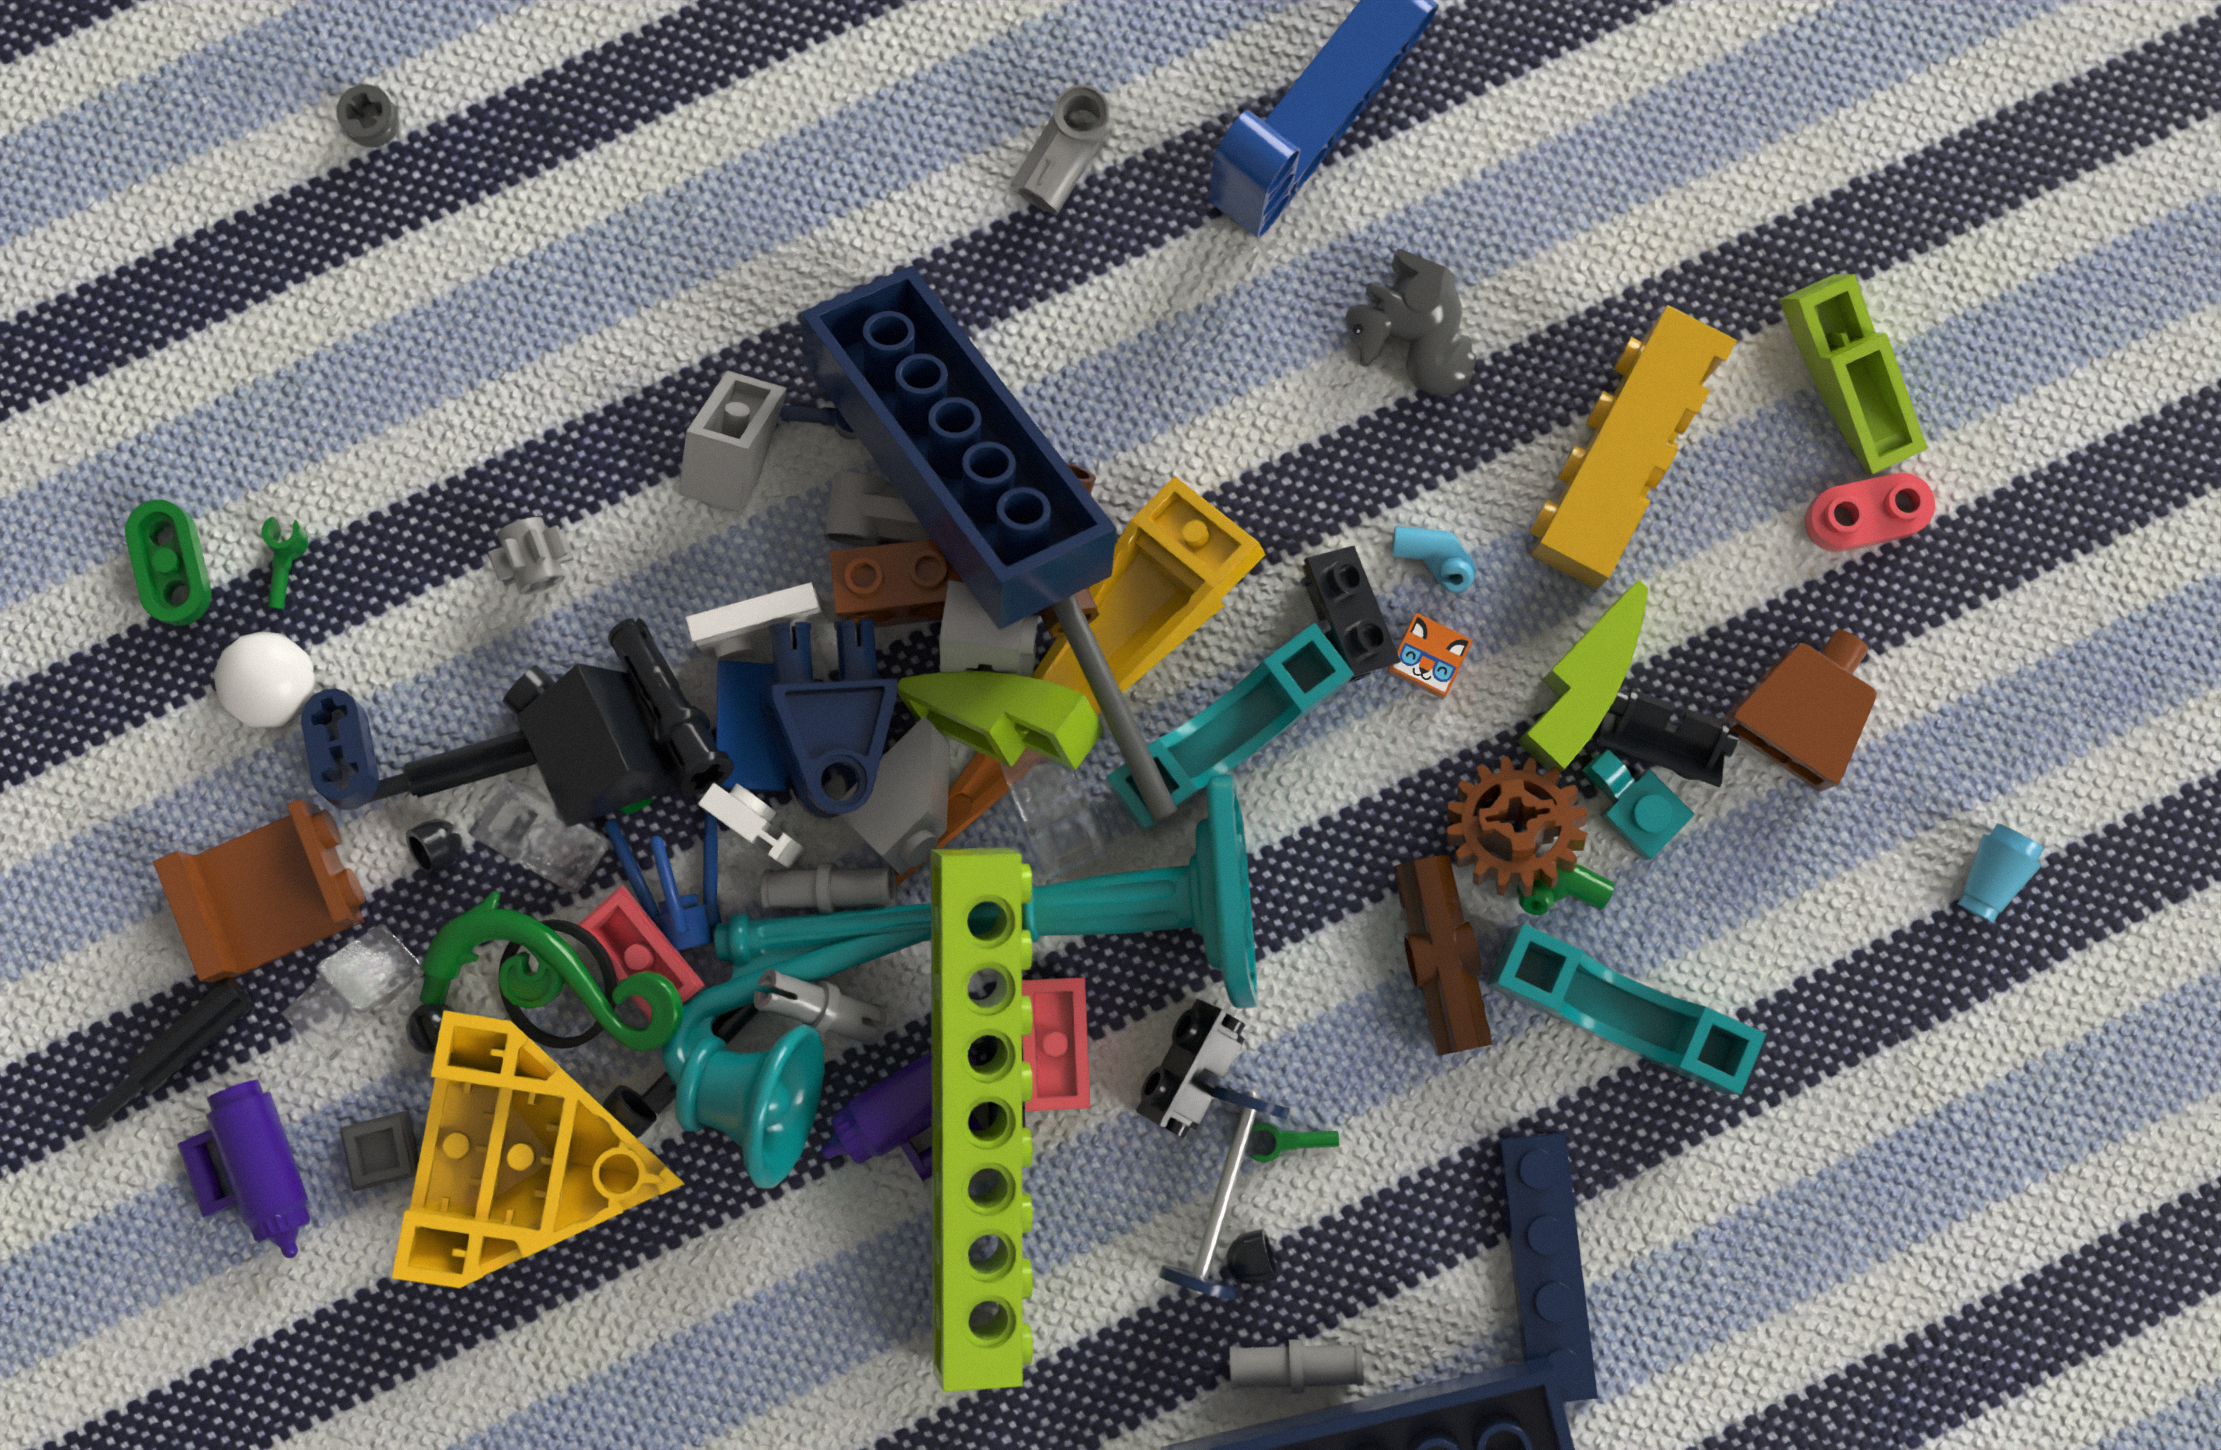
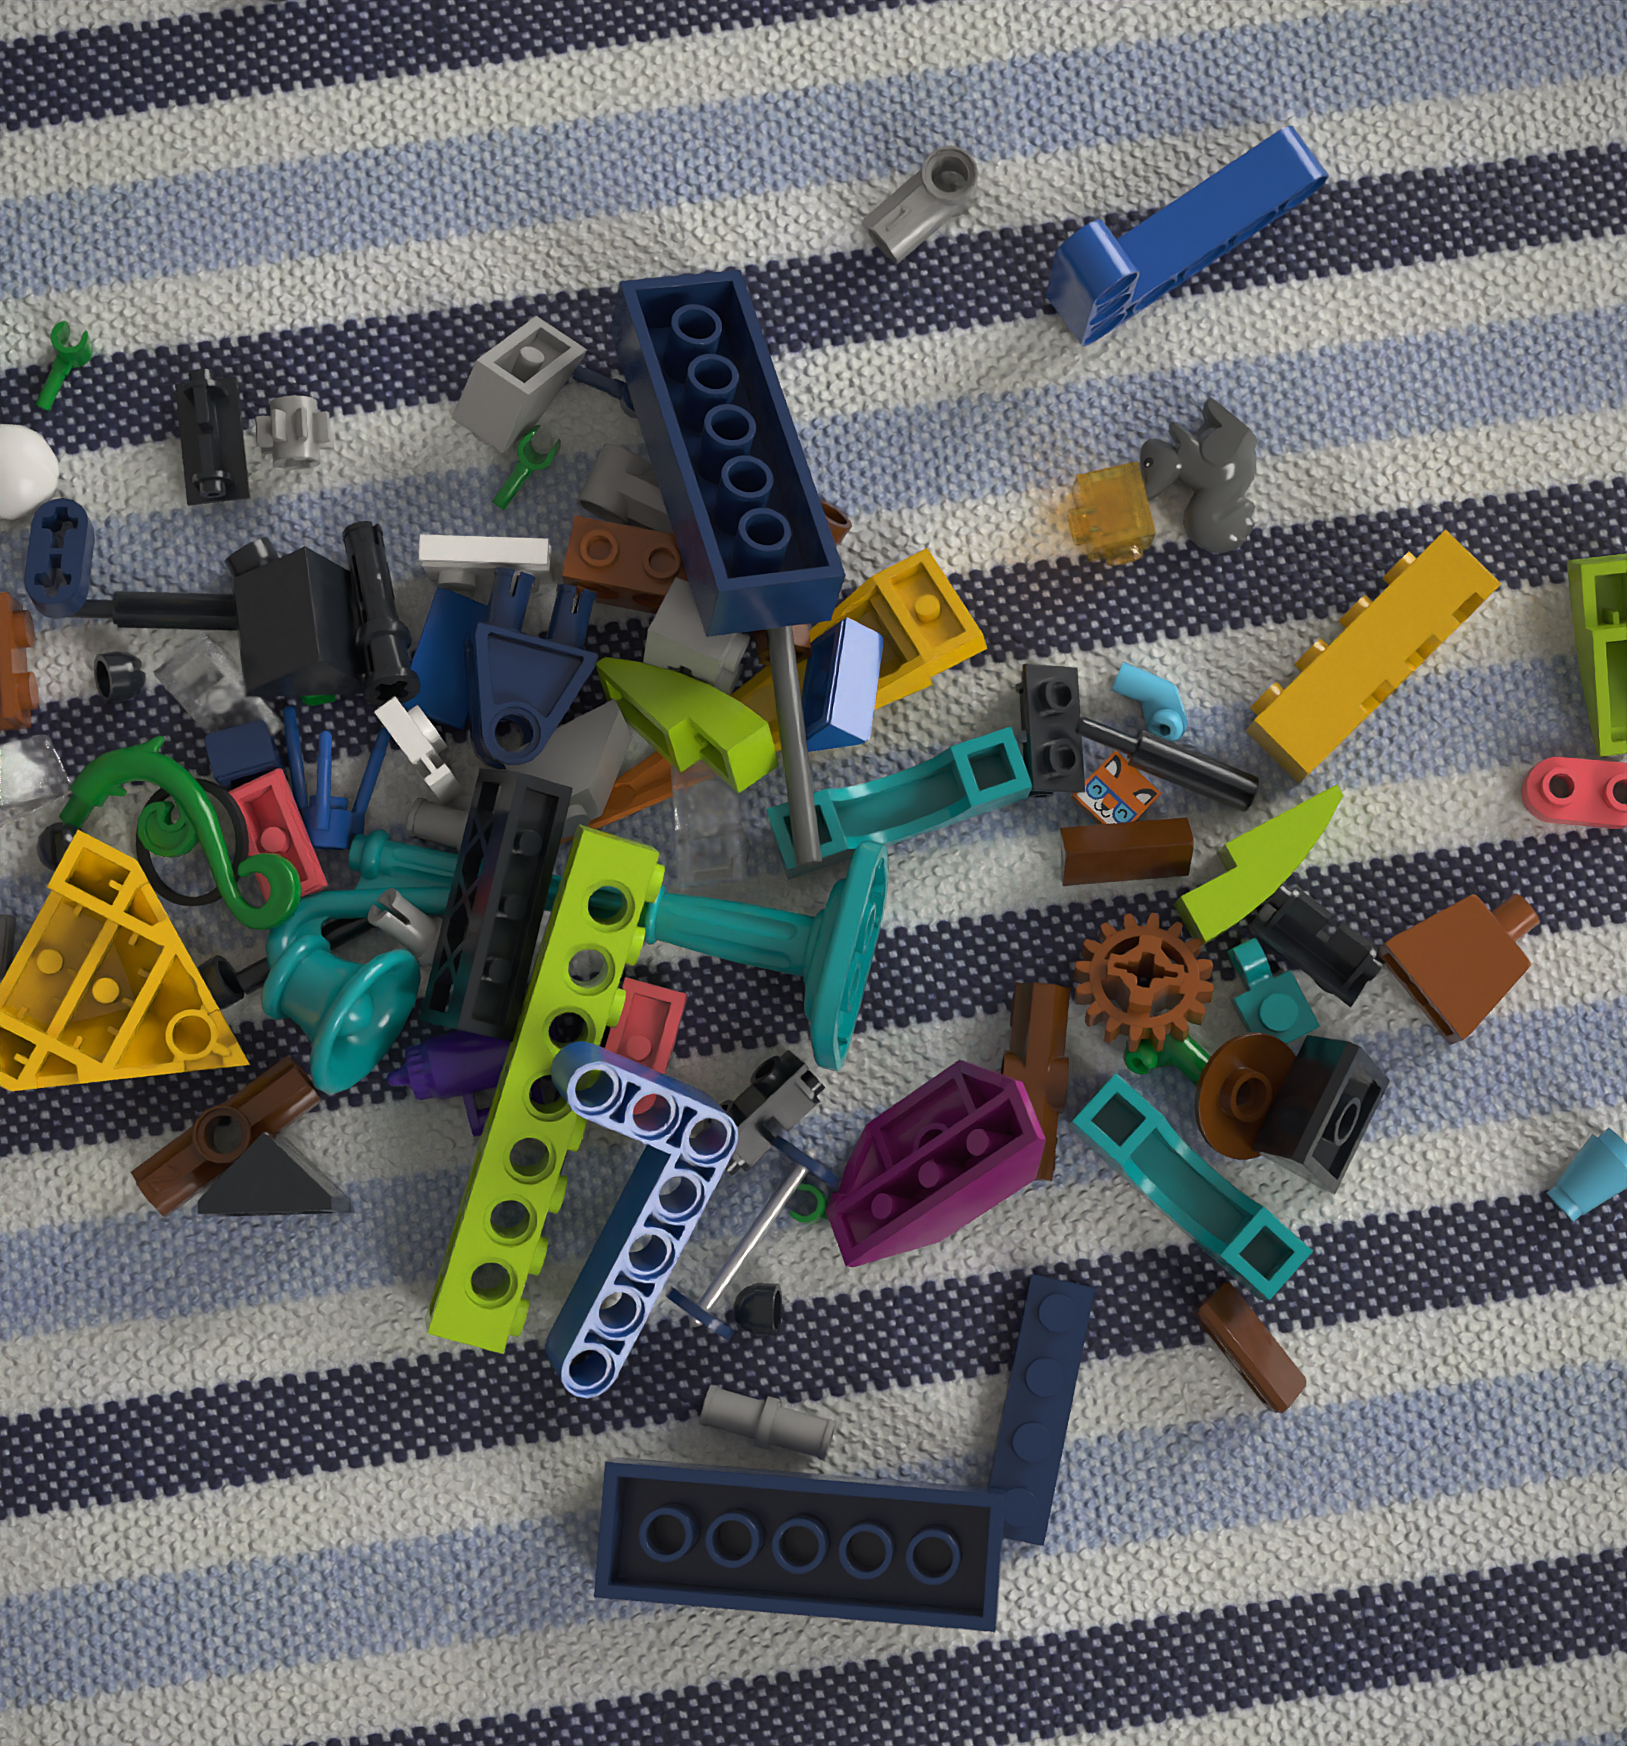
camera: 20 degrees right, 0 degrees up
(451, 586) = (212, 438): none -> black hinge
(580, 883) = (242, 754): none -> dark blue slope
(661, 1293) = (192, 1158): none -> reddish brown piece
(747, 1291) = (270, 1181): none -> black slope
(766, 512) = (528, 462): none -> green hand
(881, 952) = (501, 904): none -> black fence
(1109, 1203) = (639, 1208): none -> blue beam
(1139, 634) = (841, 686): none -> slope
(1339, 389) = (1111, 514): none -> clear yellow brick
(1378, 1064) = (935, 1163): none -> magenta wedge
(1458, 705) = (1126, 851): none -> reddish brown slope
(1479, 608) = (1176, 764): none -> black axle
(1651, 903) = (1239, 1091): none -> reddish brown dish
(1722, 894) = (1322, 1111): none -> black slope
(1729, 1143) = (1250, 1347): none -> reddish brown slope

